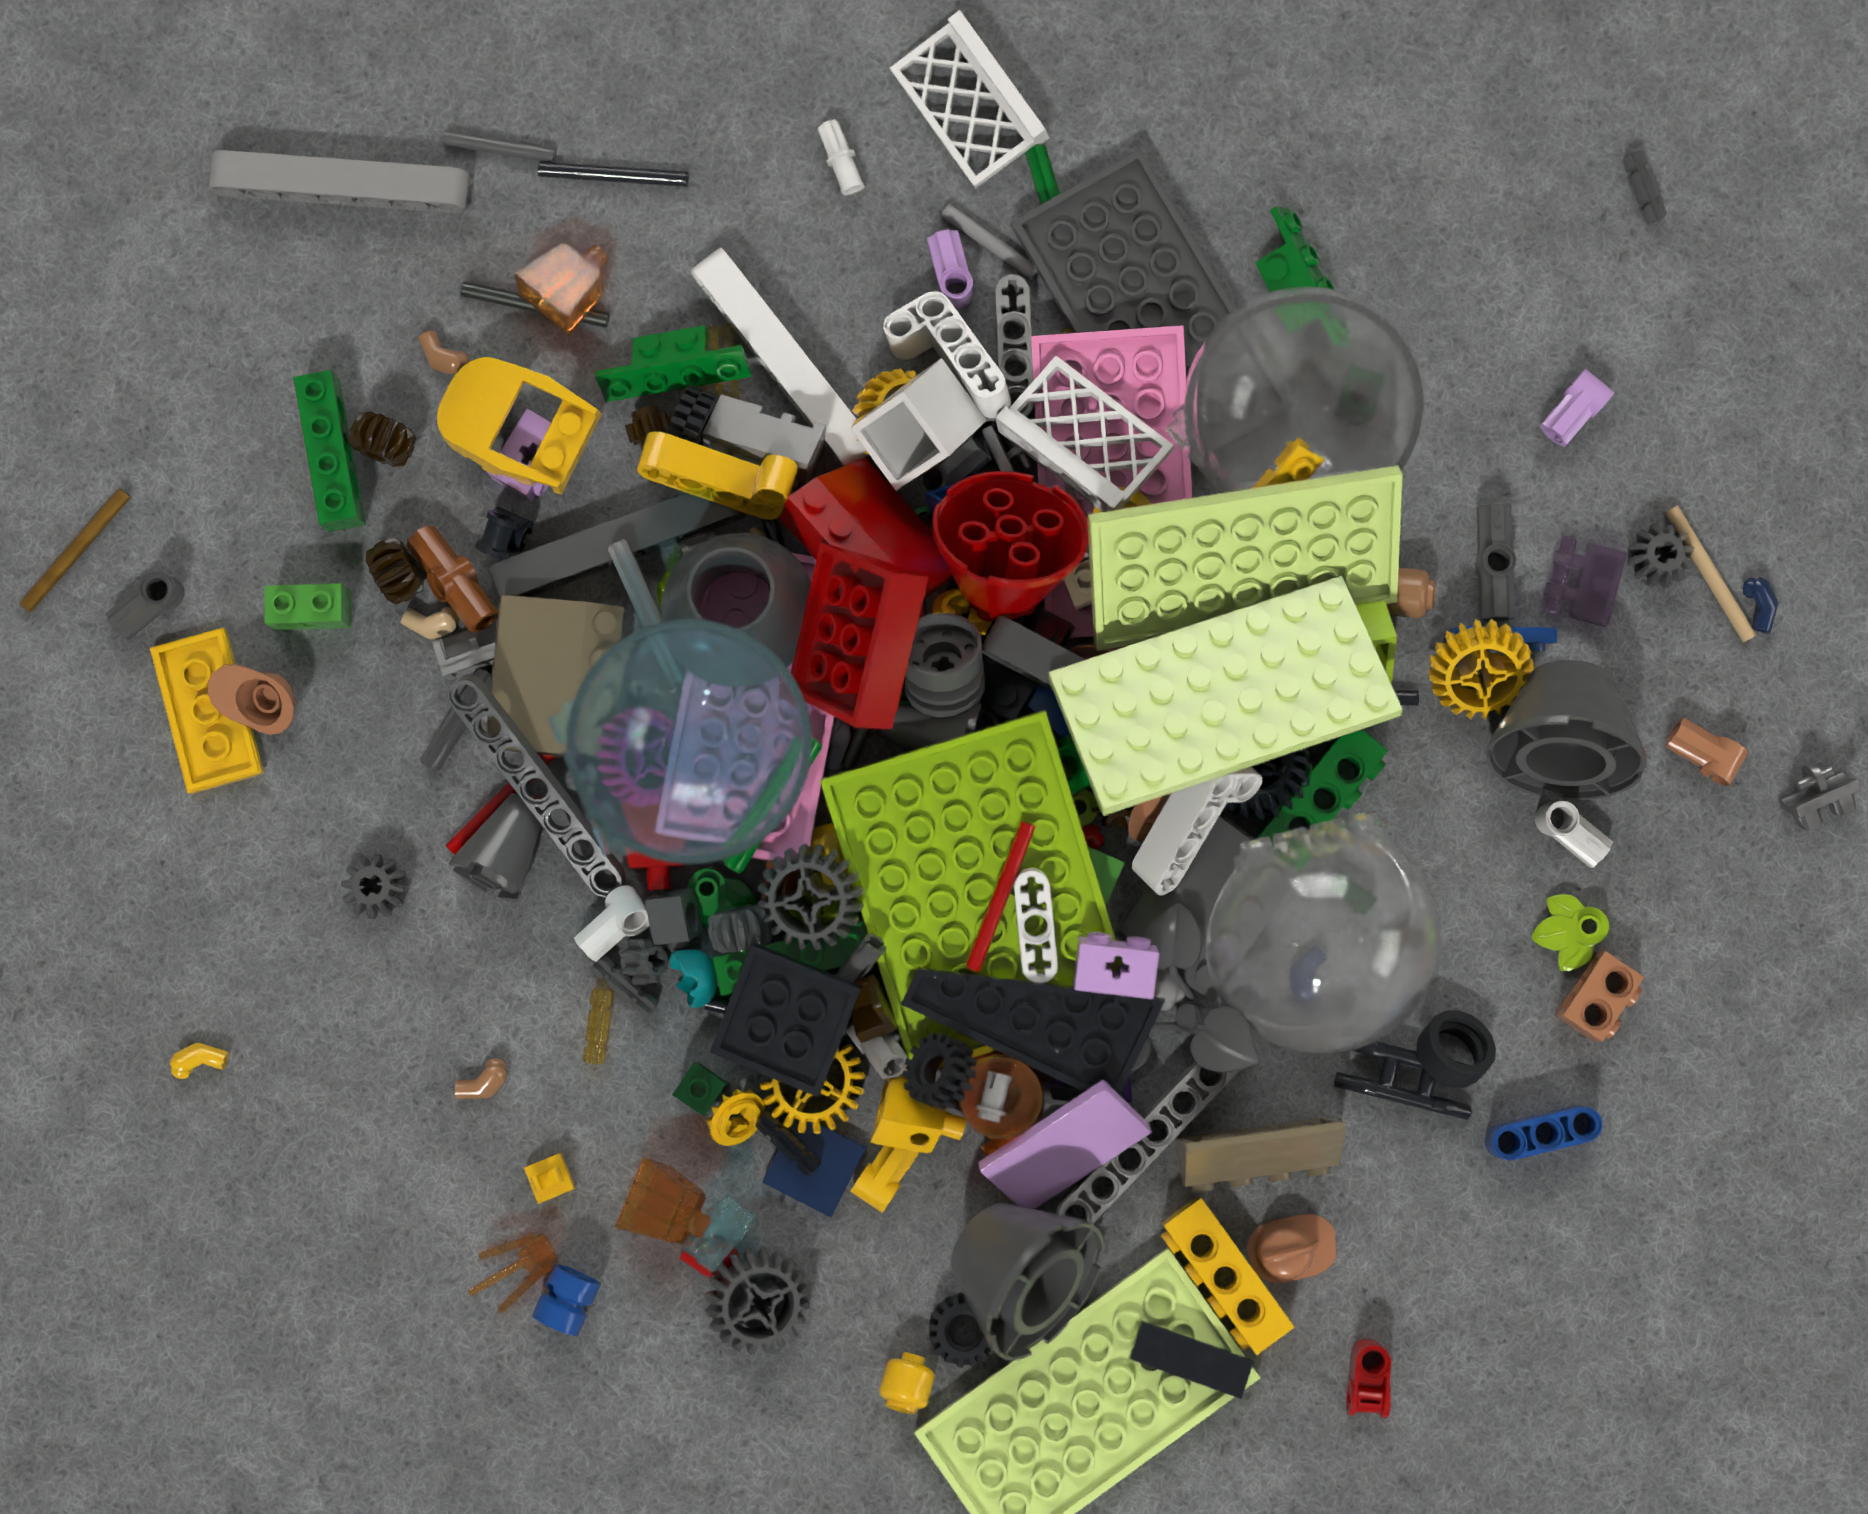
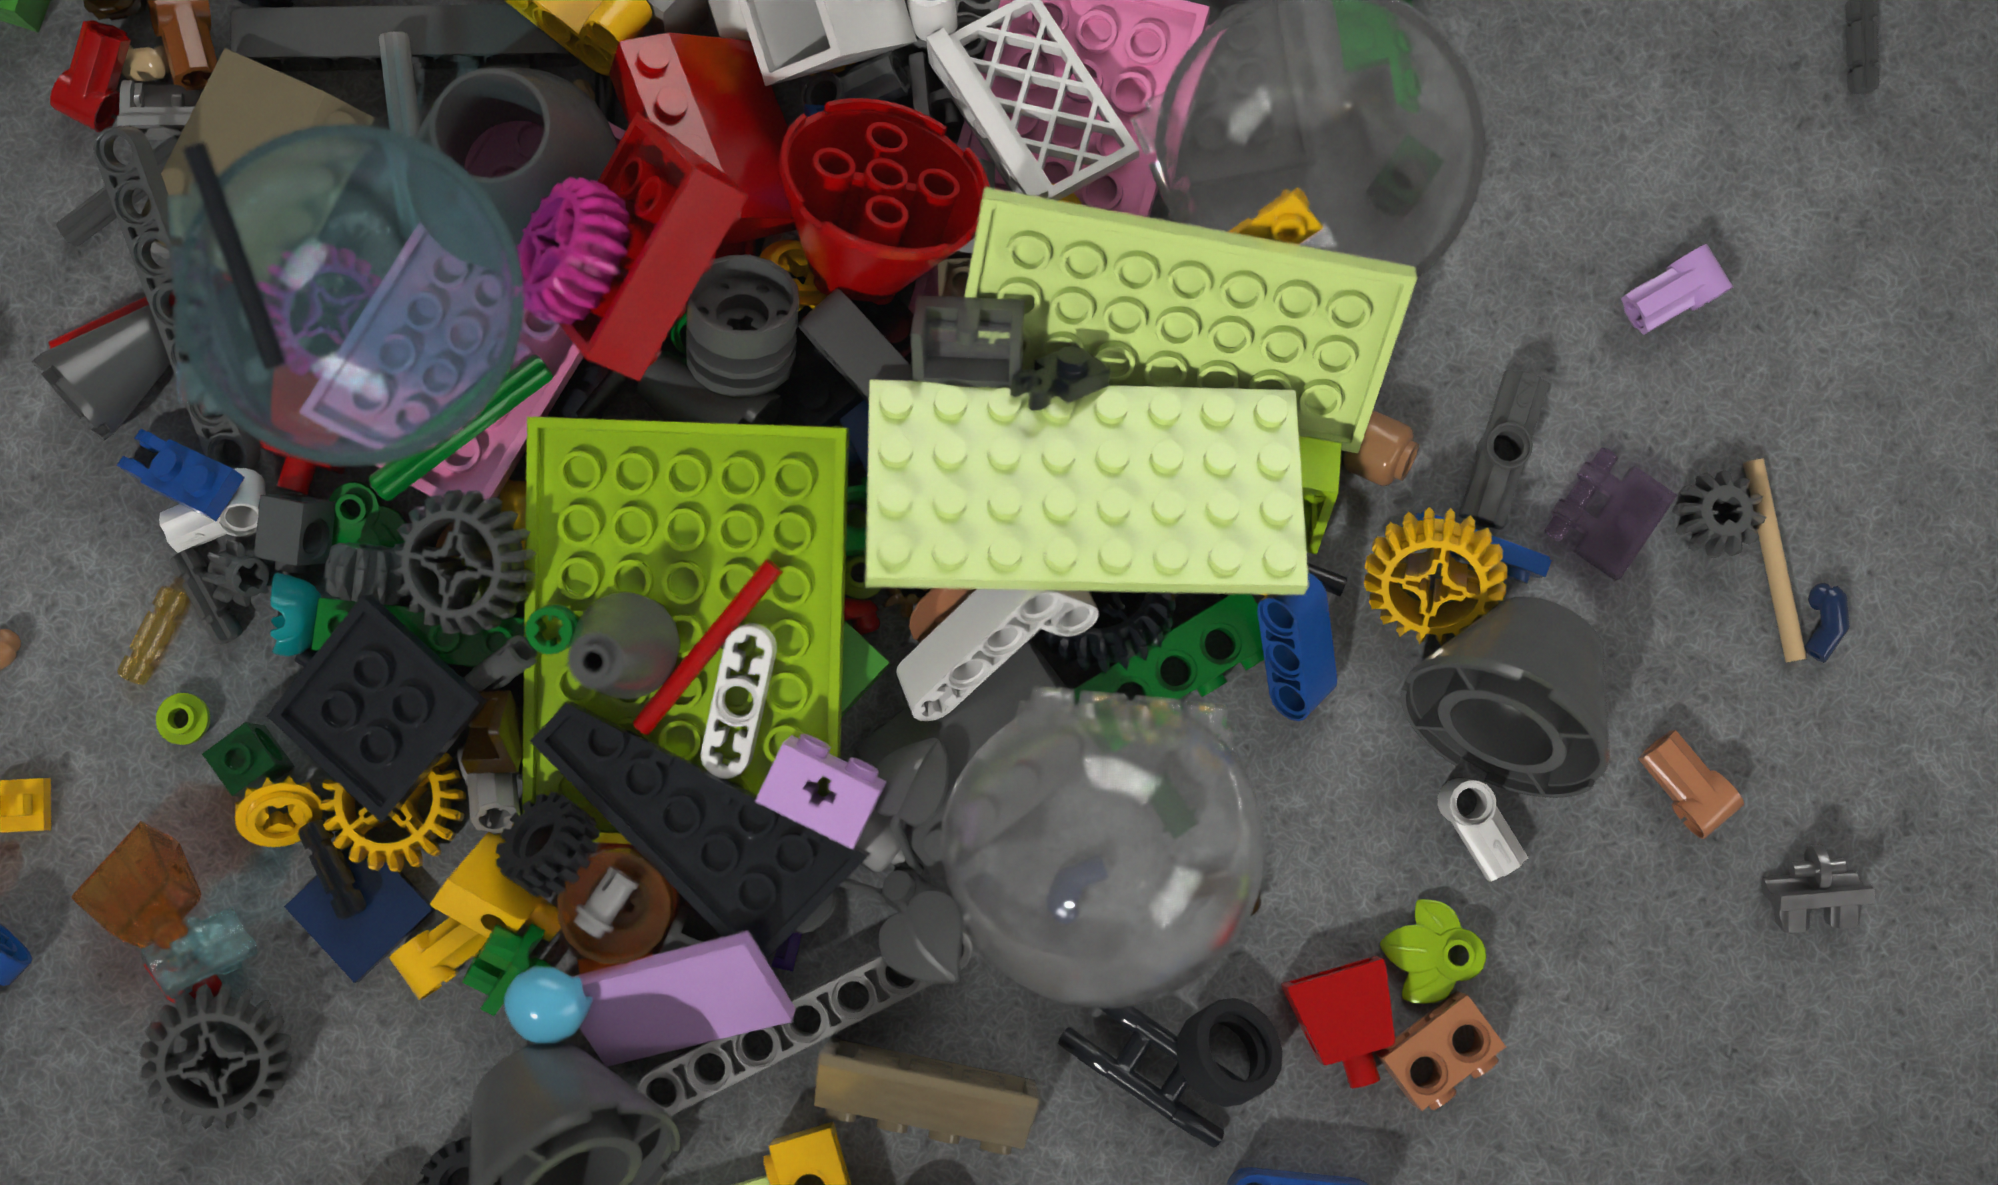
camera: 15 degrees right, 0 degrees up
(409, 654) = (90, 85): none -> red piece
(583, 906) = (184, 475): none -> blue hinge
(607, 742) = (234, 255): none -> black bar
(652, 1083) = (197, 723): none -> lime plate
(818, 652) = (572, 250): none -> dark pink gear
(876, 922) = (536, 625): none -> green bush
(940, 1167) = (500, 962): none -> green hips
(943, 902) = (624, 646): none -> dark grey cone
(979, 1181) = (546, 1005): none -> medium azure hair
(1108, 621) = (967, 340): none -> dark grey window
(1180, 621) = (1065, 374): none -> black plate
(1405, 755) = (1298, 649): none -> blue beam
(1526, 995) = (1346, 1016): none -> red torso

